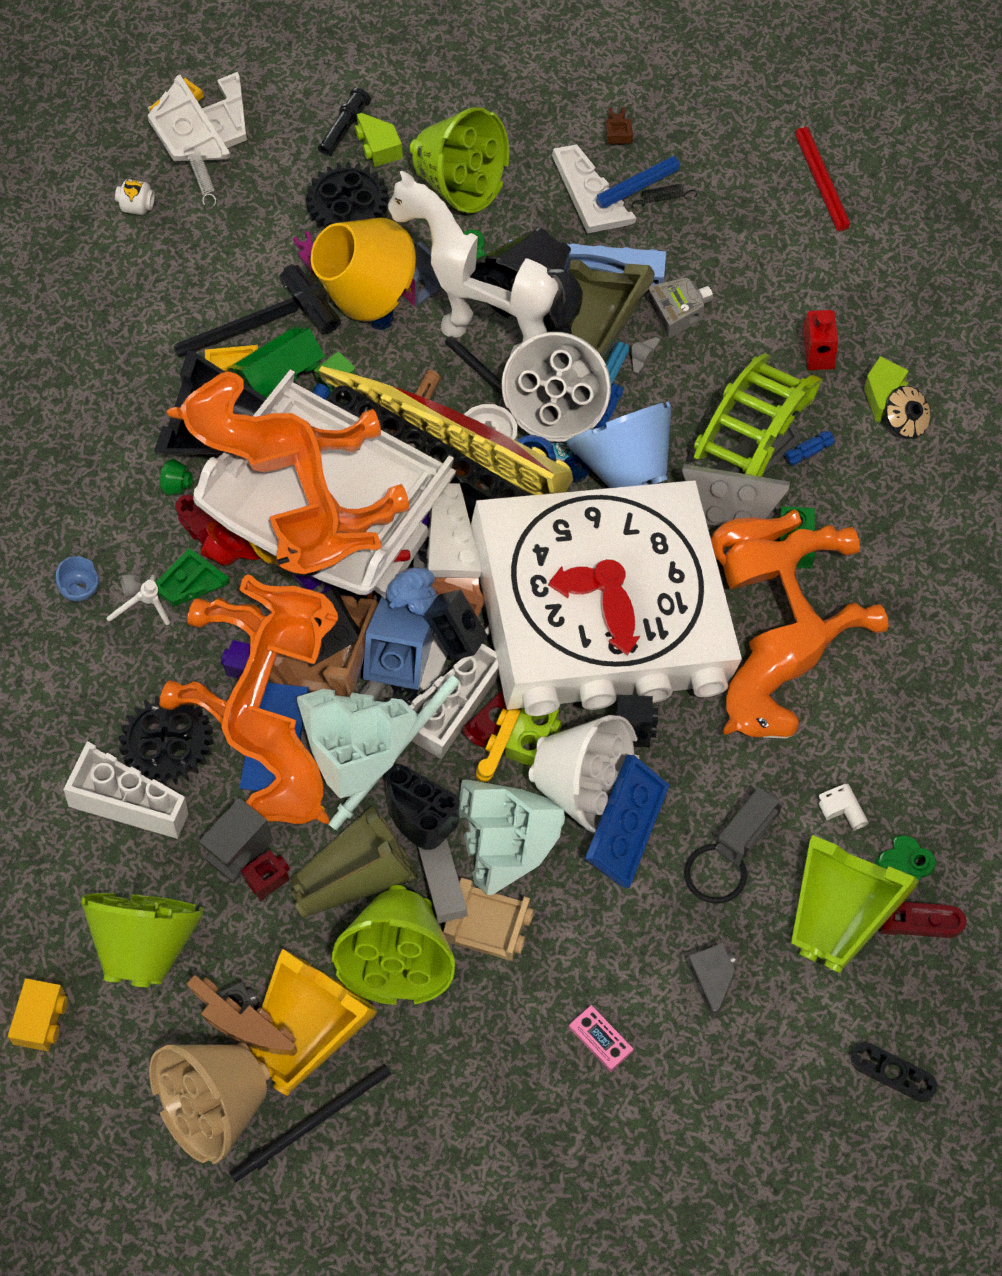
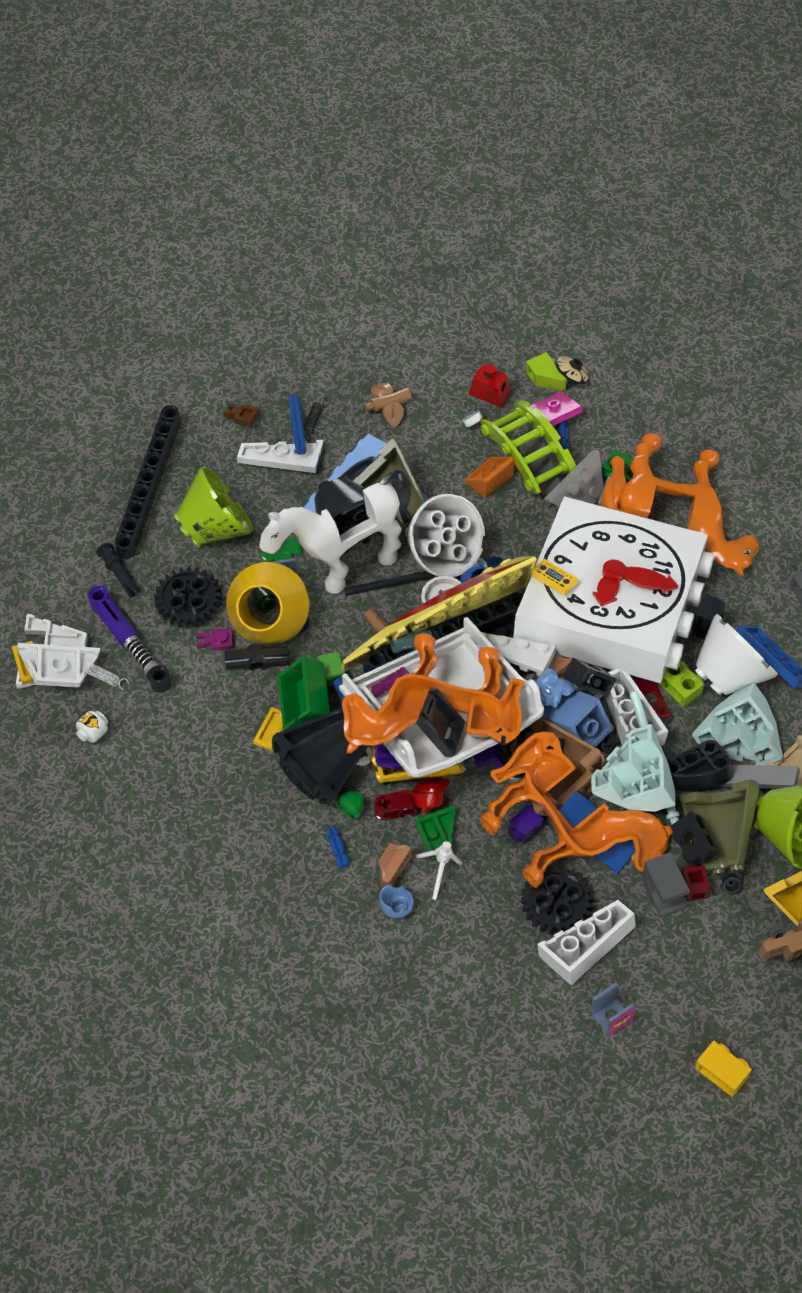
camera: 60 degrees left, 5 degrees down
(54, 849) = (607, 1001): none -> sand blue piece
(119, 494) = (337, 847): none -> blue axle
(119, 553) = (393, 862): none -> nougat slope
(130, 584) = (422, 869): light grey hinge -> none
(138, 935) = (705, 969): lime cone -> none
(236, 327) = (246, 716): black axle -> none
(263, 173) = (128, 637): none -> piece
(269, 481) = (435, 720): none -> black container
(287, 915) = (731, 887): none -> black plate
(316, 845) = (704, 846): none -> black brick
(317, 420) = (387, 682): none -> magenta axle
(379, 138) = (151, 554): lime slope -> none
(389, 420) = (406, 642): none -> clear light blue axle
(473, 87) = (147, 482): none -> black beam
(497, 744) = (677, 703): yellow plate -> none
(555, 516) = (554, 577): none -> yellow tile
(629, 449) = (511, 522): light blue cone -> none
(642, 353) = (431, 486): light grey piece -> none
(677, 304) = (412, 447): light grey torso -> none
(694, 402) = (491, 475): none -> orange slope
(731, 253) = (389, 402): none -> medium nougat plant
(765, 346) = (472, 418): none -> white tile
(822, 179) = (363, 326): red axle -> none
(836, 421) = (558, 408): none -> dark pink plate

